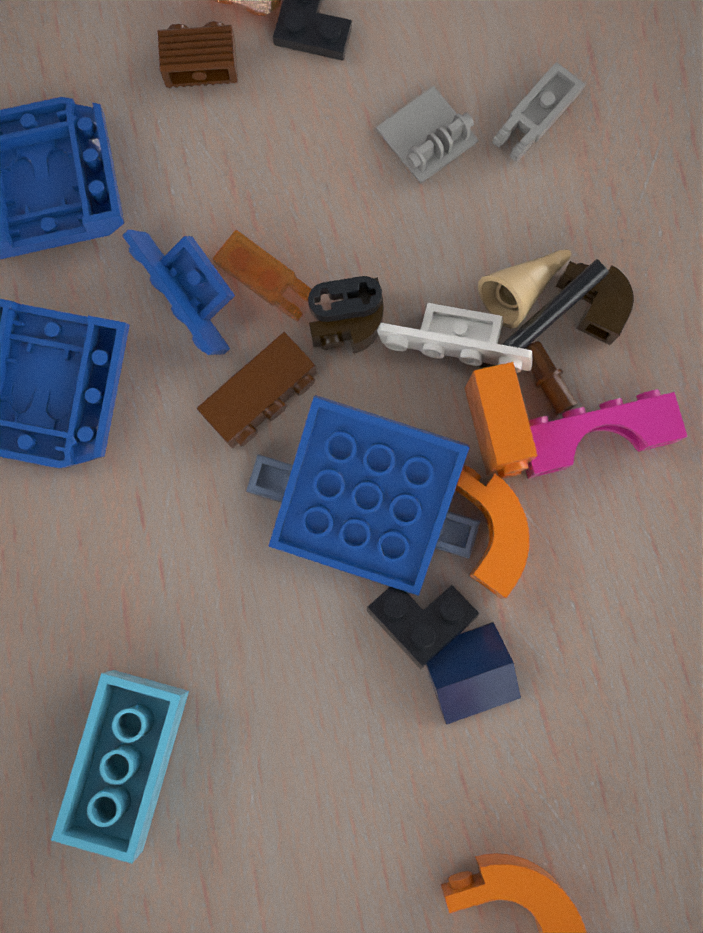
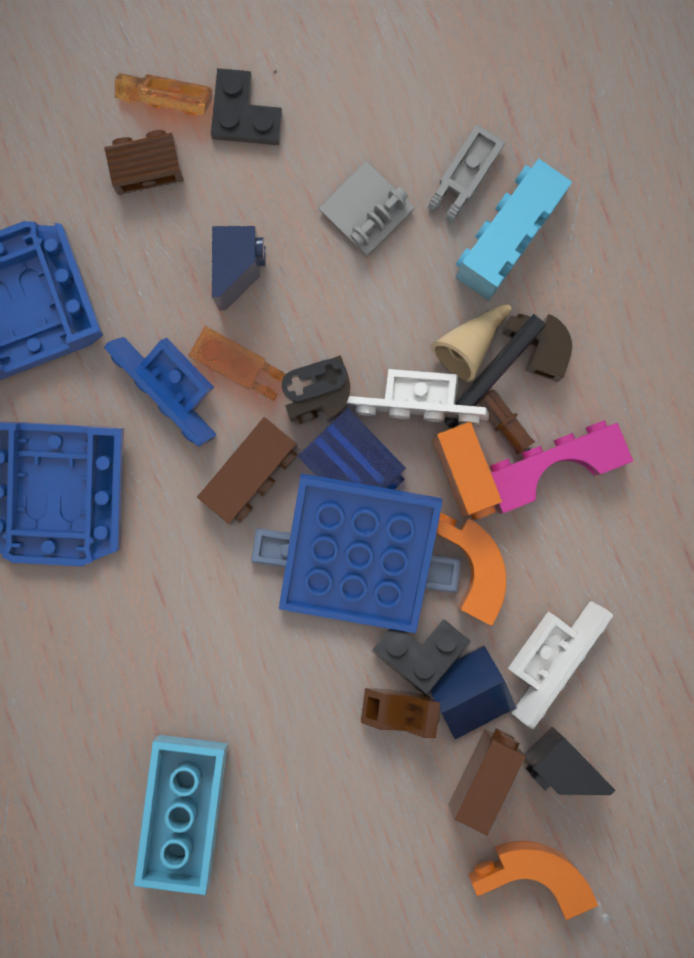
camera: 10 degrees left, 5 degrees up
(277, 164) = (235, 262): none -> dark blue slope
(377, 384) = (352, 454): none -> clear blue brick
(389, 682) = (400, 711): none -> reddish brown brick
(478, 777) = (486, 780): none -> reddish brown brick
(568, 772) = (563, 768): none -> black slope
(569, 646) = (552, 658): none -> white bracket
(580, 174) = (512, 229): none -> medium azure wedge

